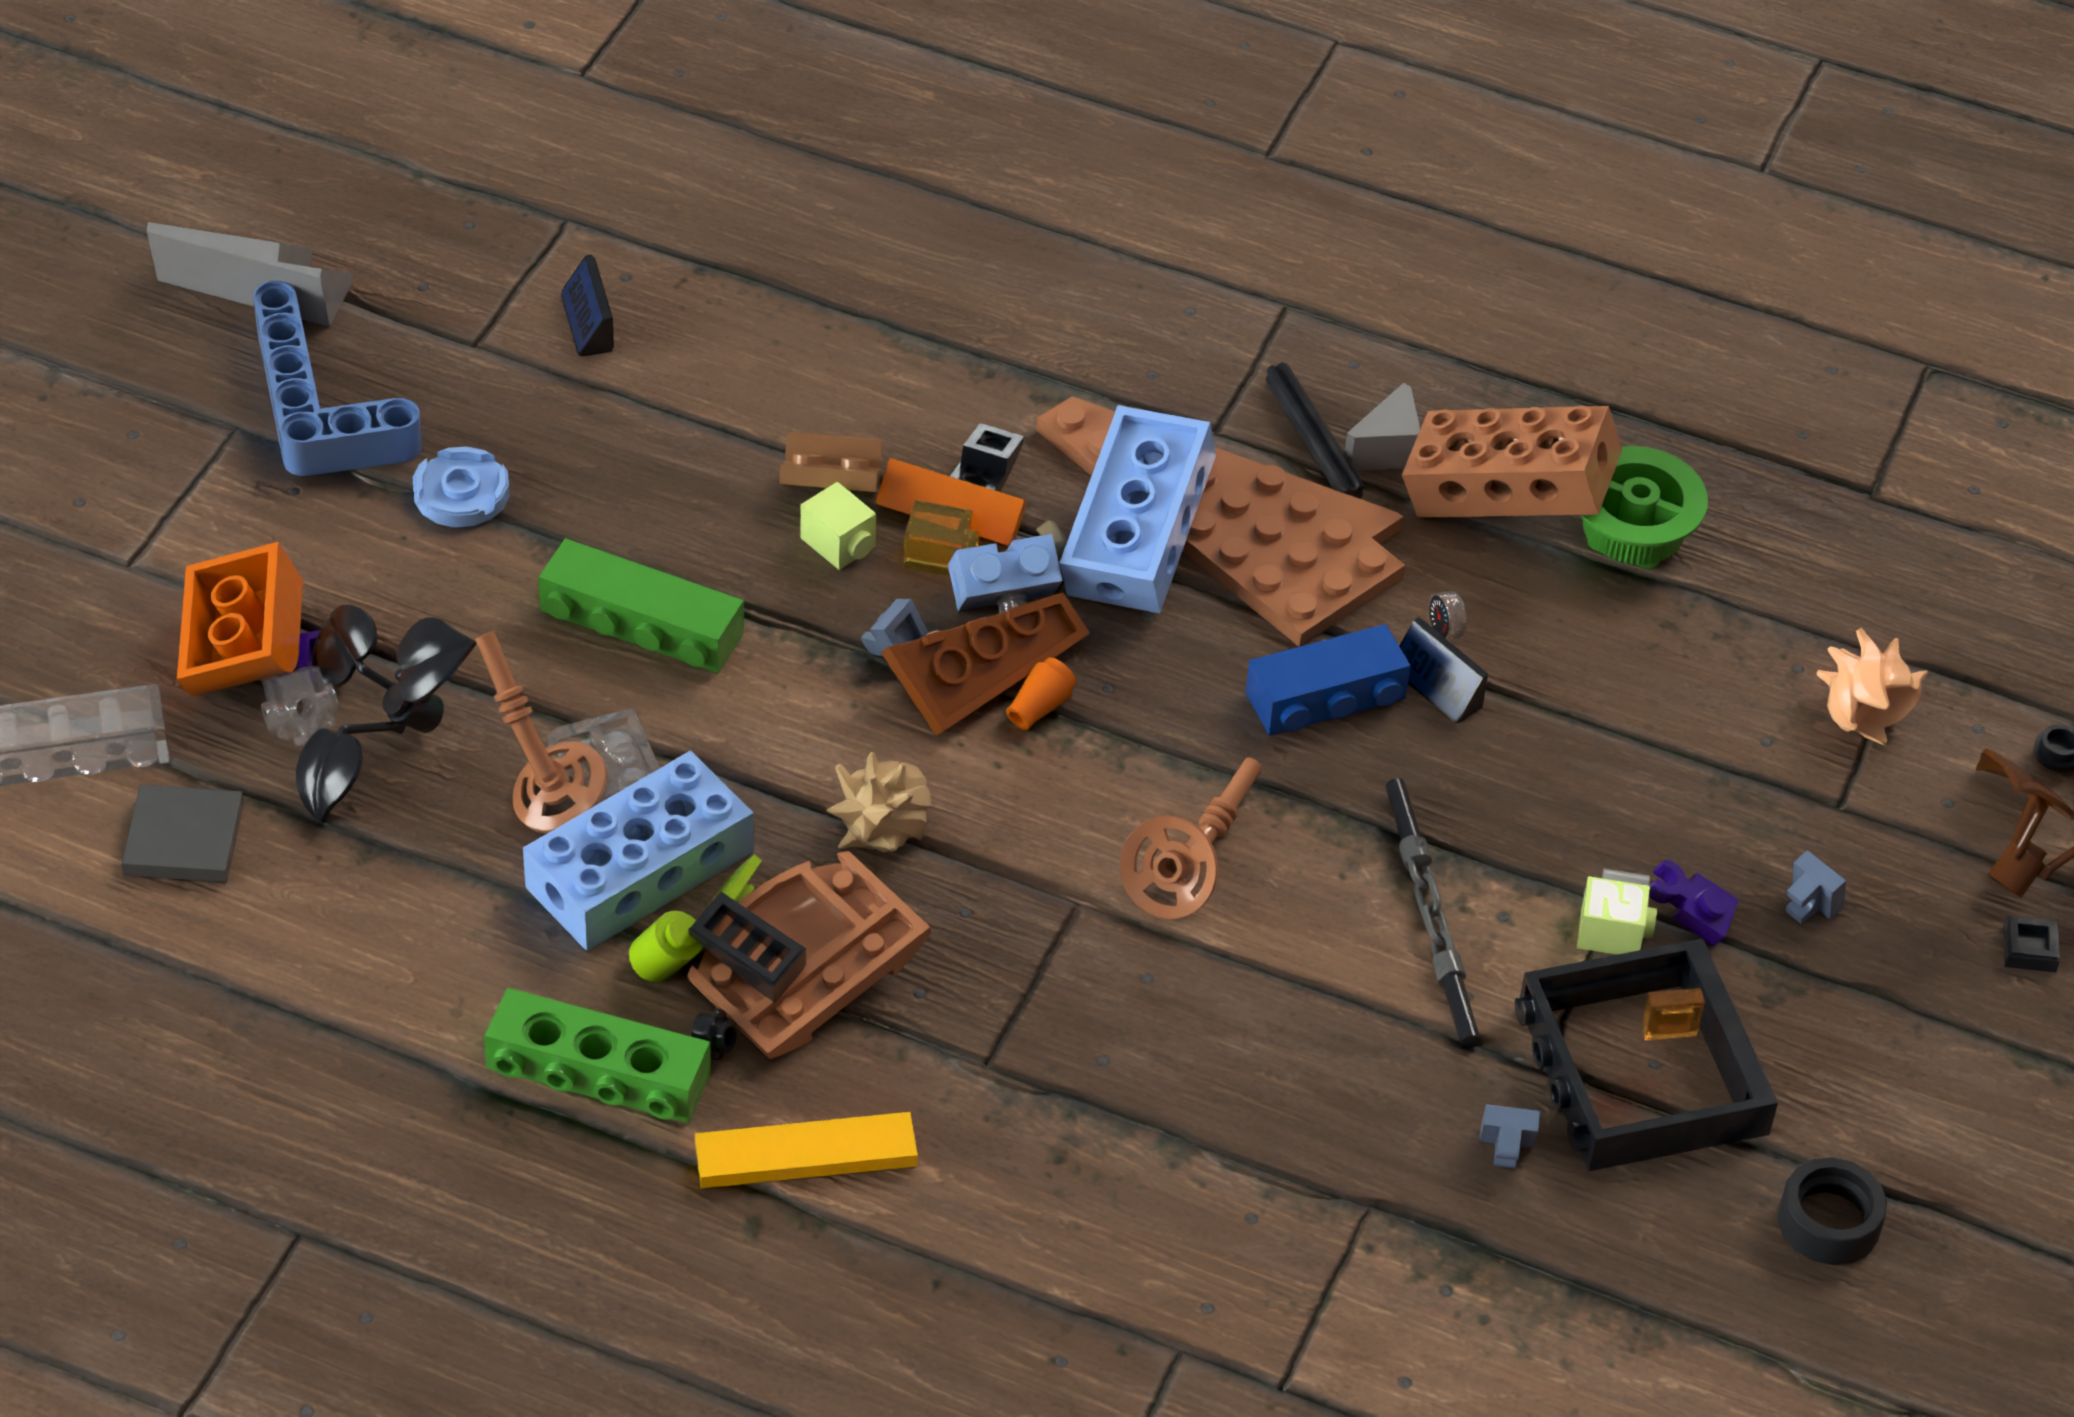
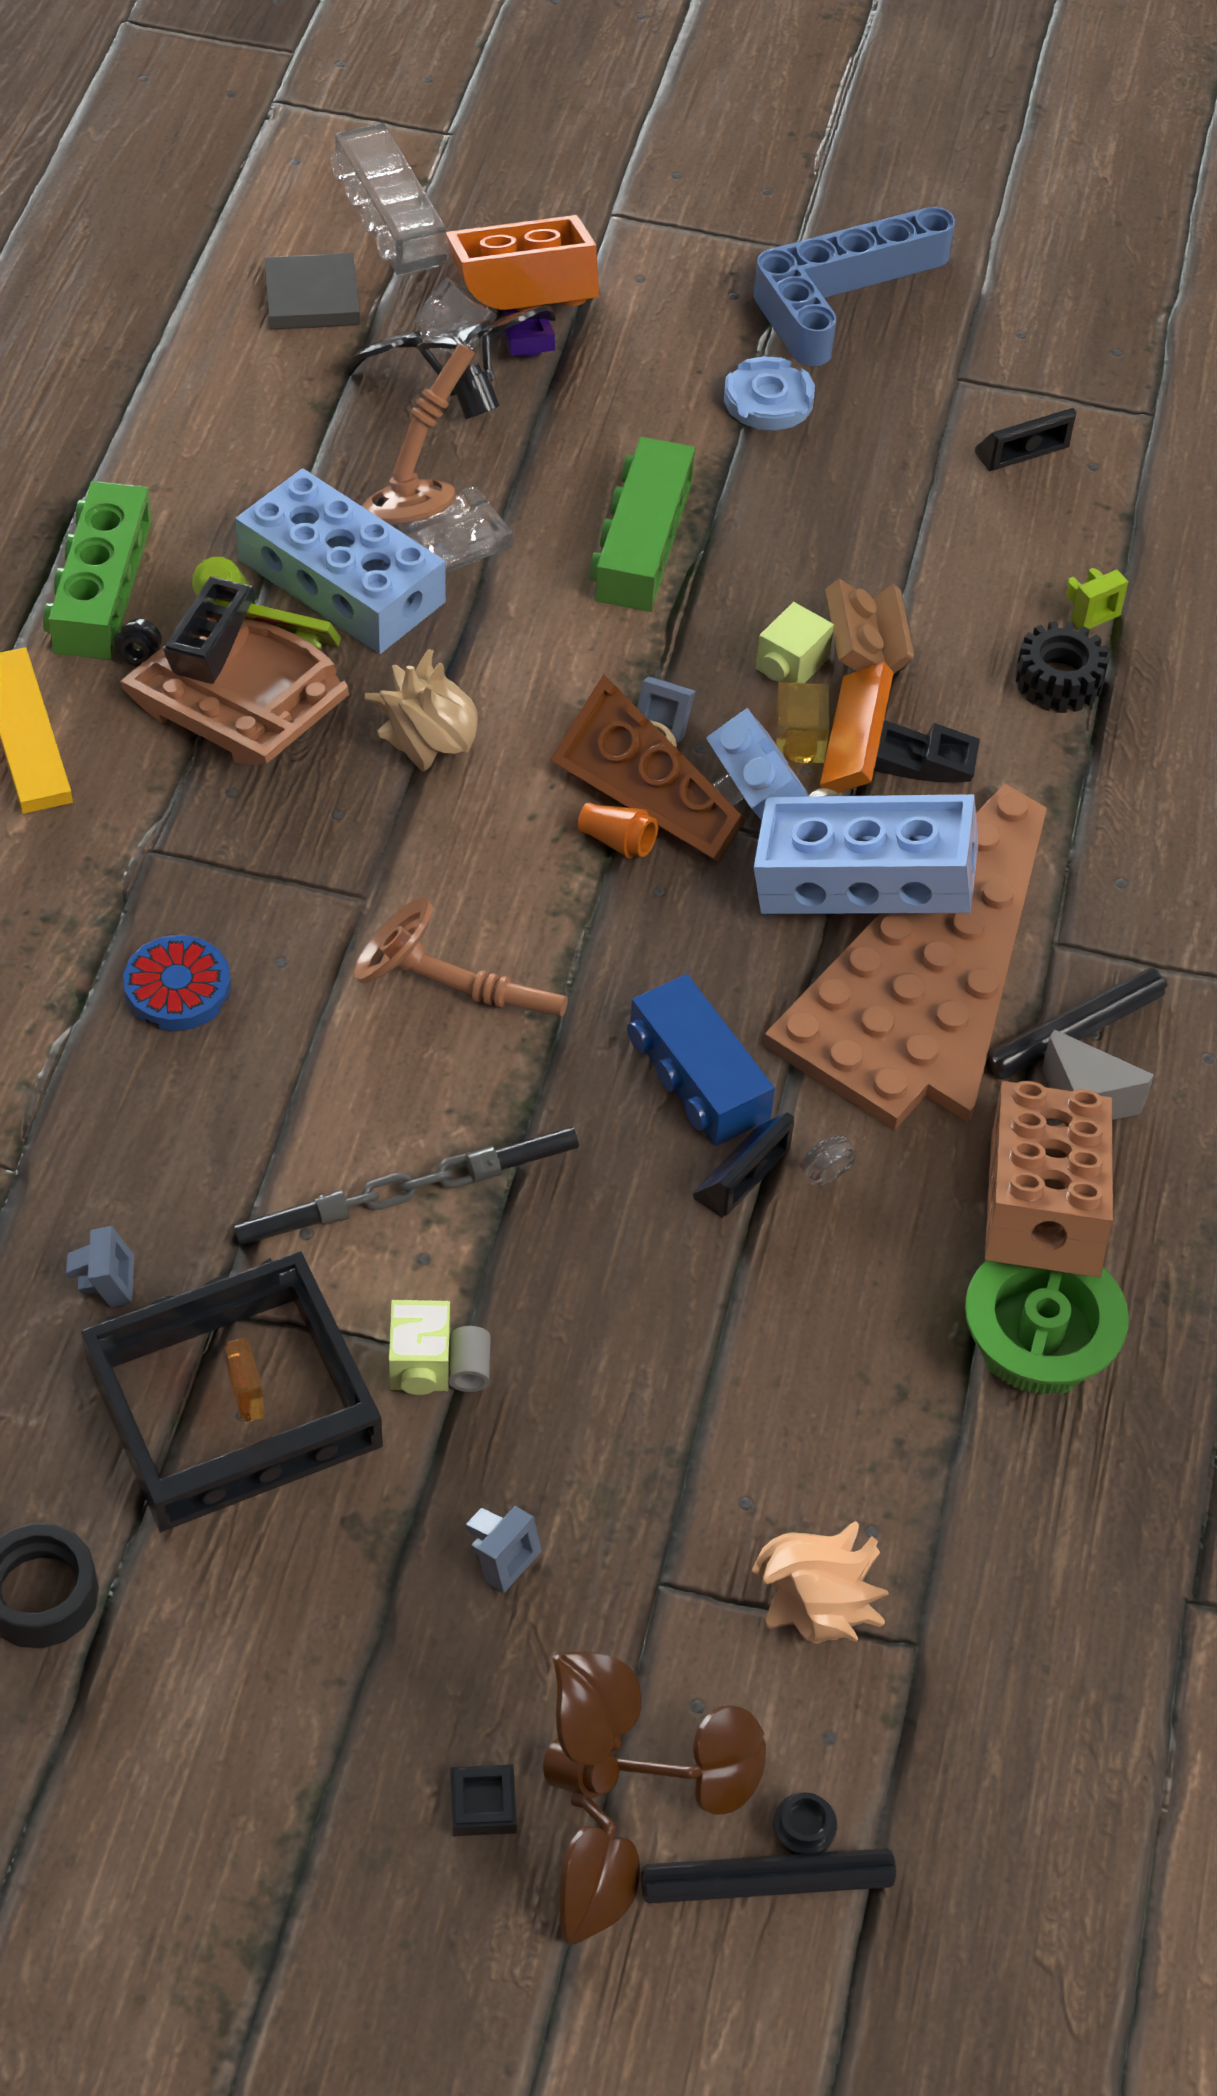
camera: 80 degrees right, 5 degrees up
(237, 265) = (988, 215): light grey slope -> none
(821, 305) = (1097, 599): none -> lime tile
(901, 367) = (1065, 647): none -> black tyre
(1169, 1054) = (177, 982): none -> tile
(1698, 901) = (458, 1433): dark purple plate -> none

